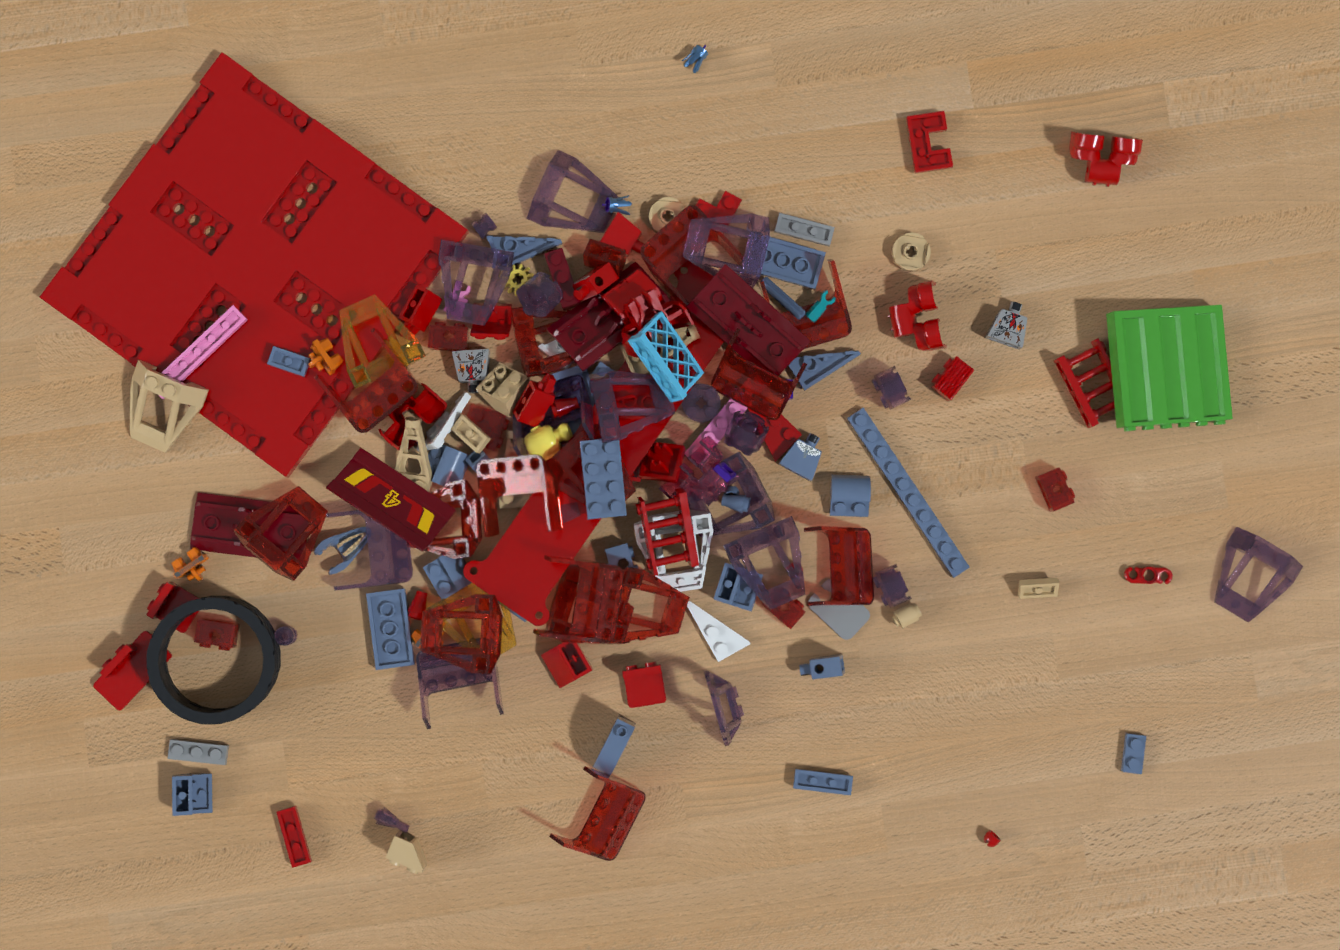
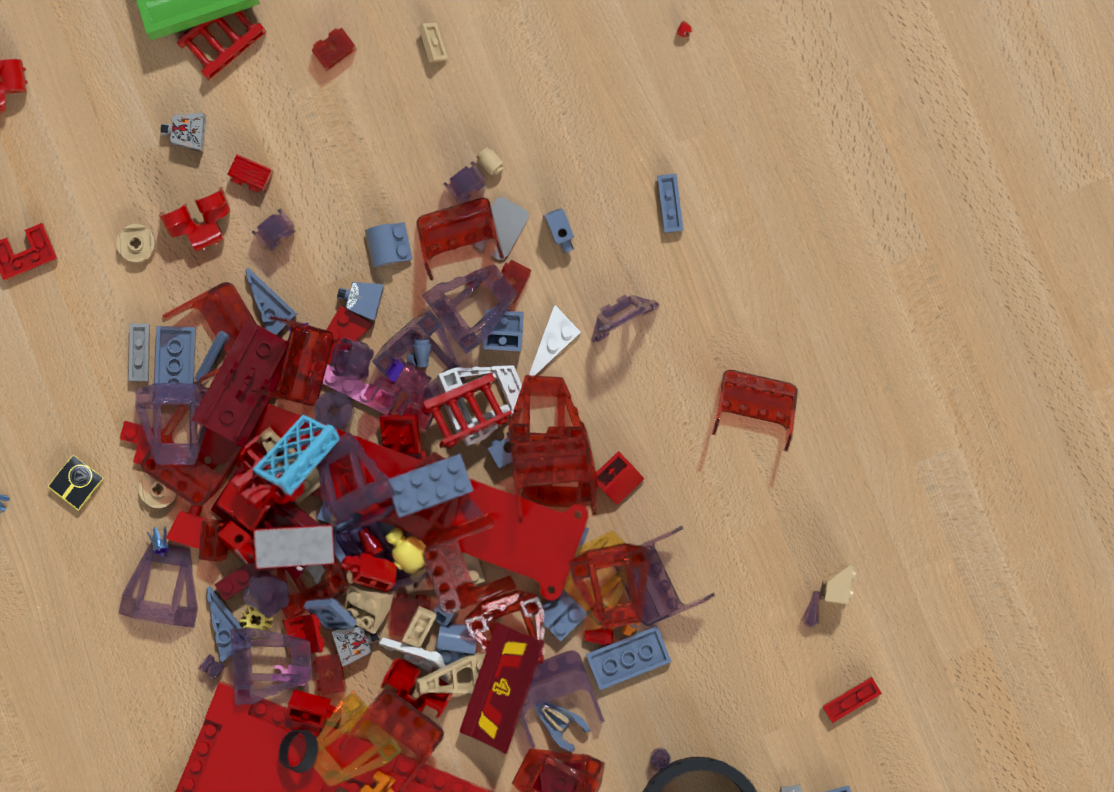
camera: 105 degrees left, 0 degrees up
(375, 300) = (310, 753): none -> black tyre
(504, 352) = (330, 614): none -> sand blue plate
(577, 332) = (294, 546): none -> flat silver tile
(614, 745) = (685, 411): sand blue brick -> none
(644, 685) = (620, 397): red bracket -> none
(693, 139) = (75, 482): none -> black slope
(819, 307) = (211, 318): teal bar -> none
(908, 492) = (371, 189): sand blue plate -> none

